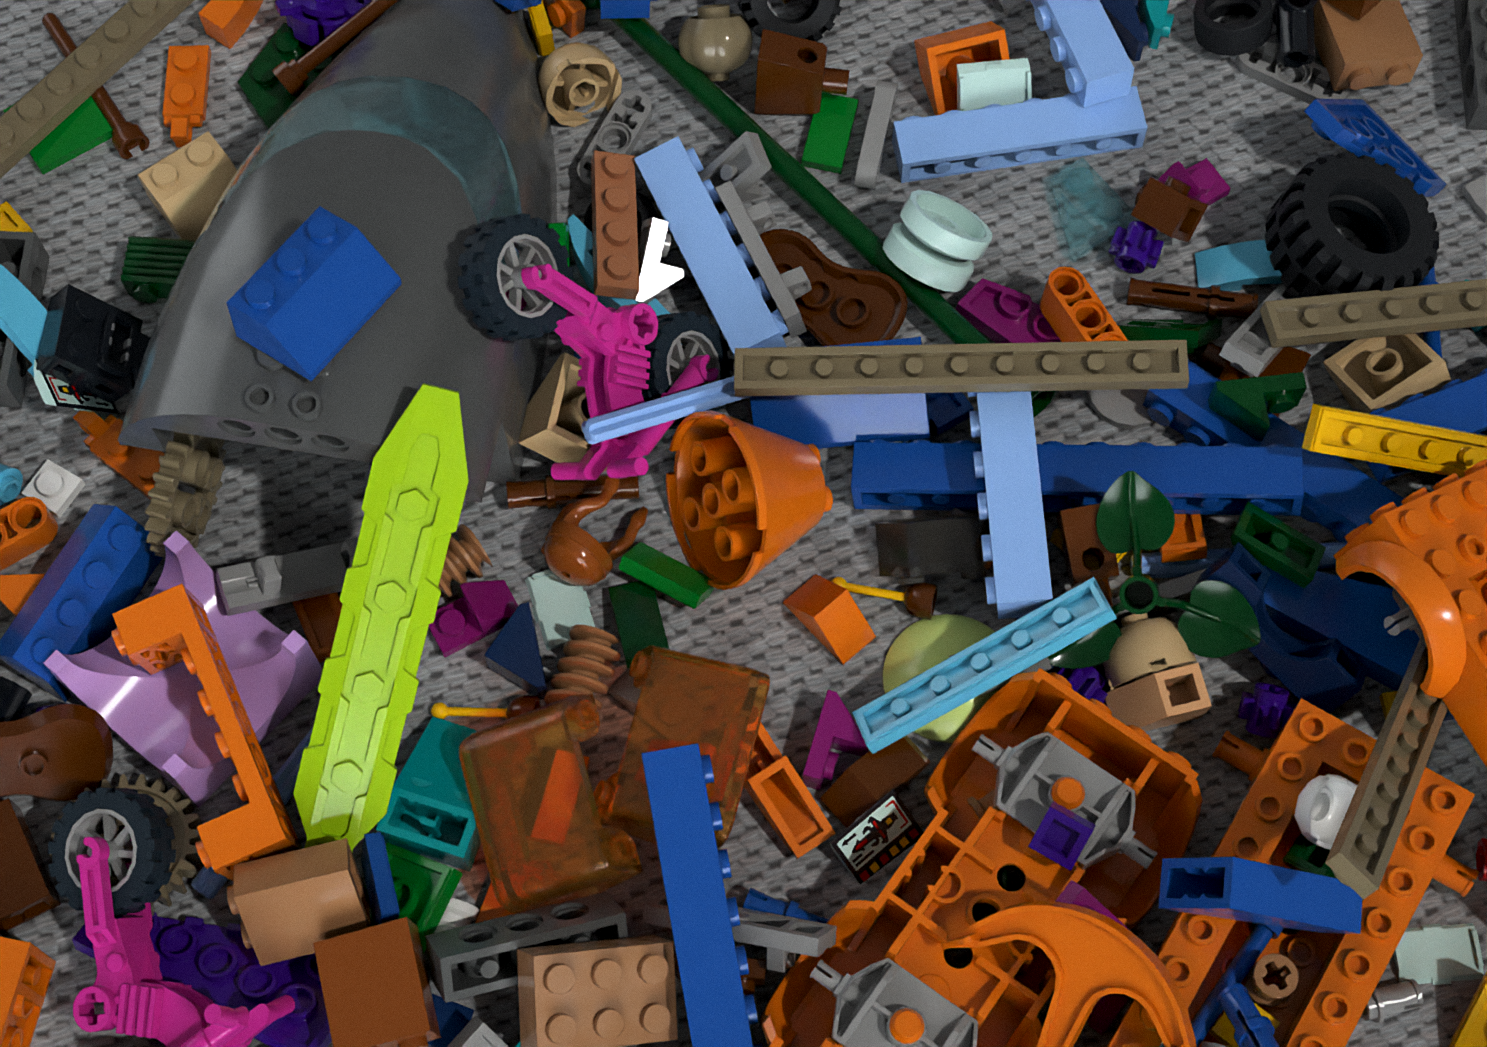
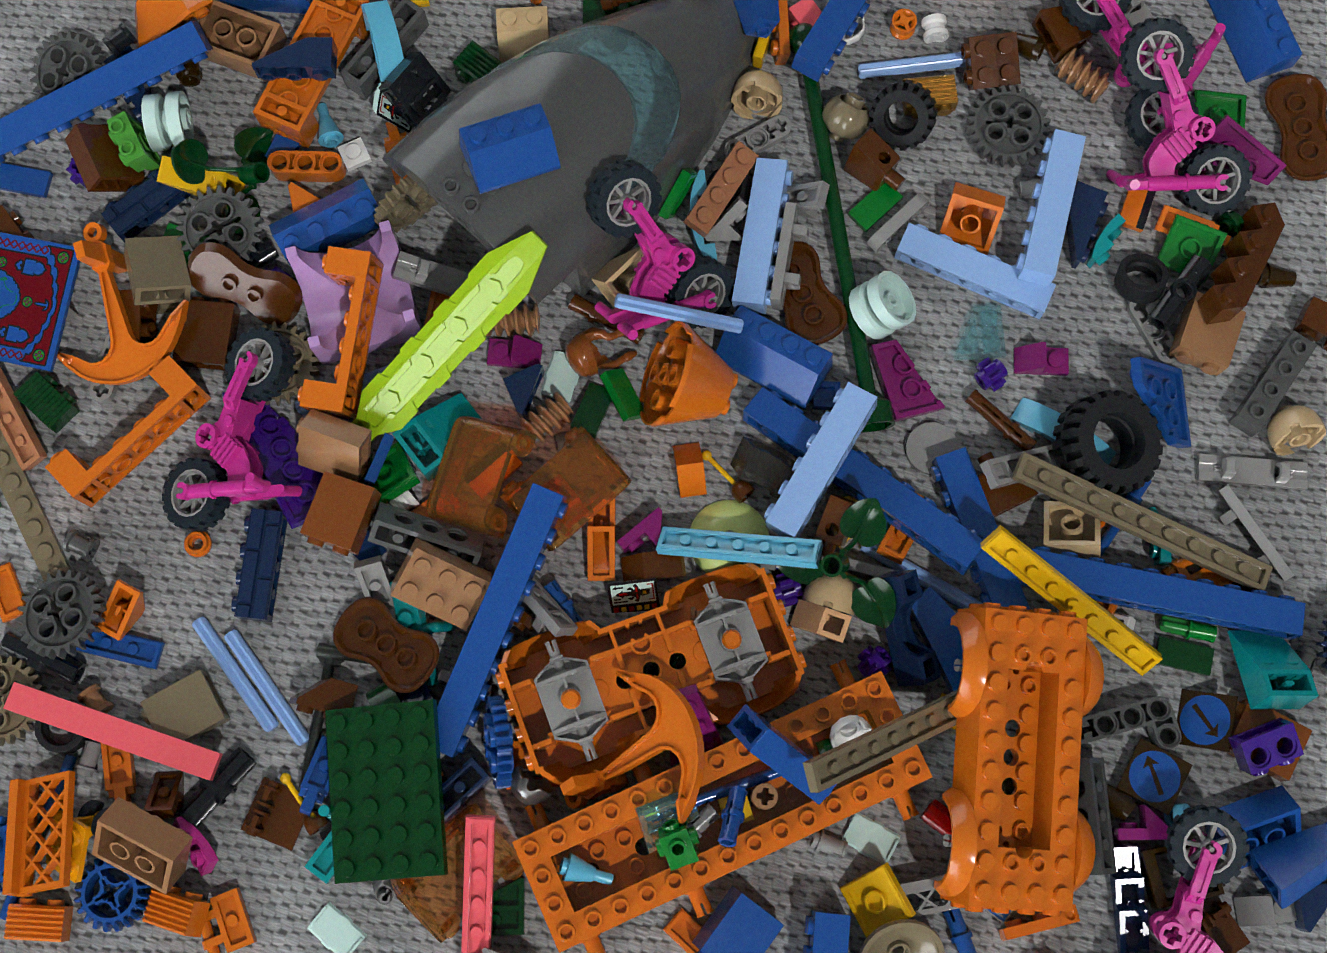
camera: 35 degrees right, 10 degrees up
(515, 708) = (503, 417): hinge -> none
(961, 368) = (834, 387): dark tan plate -> none
(993, 83) = (980, 234): light aqua piece -> none
(1062, 835) = (711, 658): dark purple plate -> none
(1076, 310) = (933, 391): orange beam -> none
(1169, 207) = (1021, 365): reddish brown brick -> none
(1172, 329) = (971, 432): dark green wing -> none
(1247, 400) = (979, 496): dark green slope -> none
(1277, 545) = (937, 583): dark green slope -> none

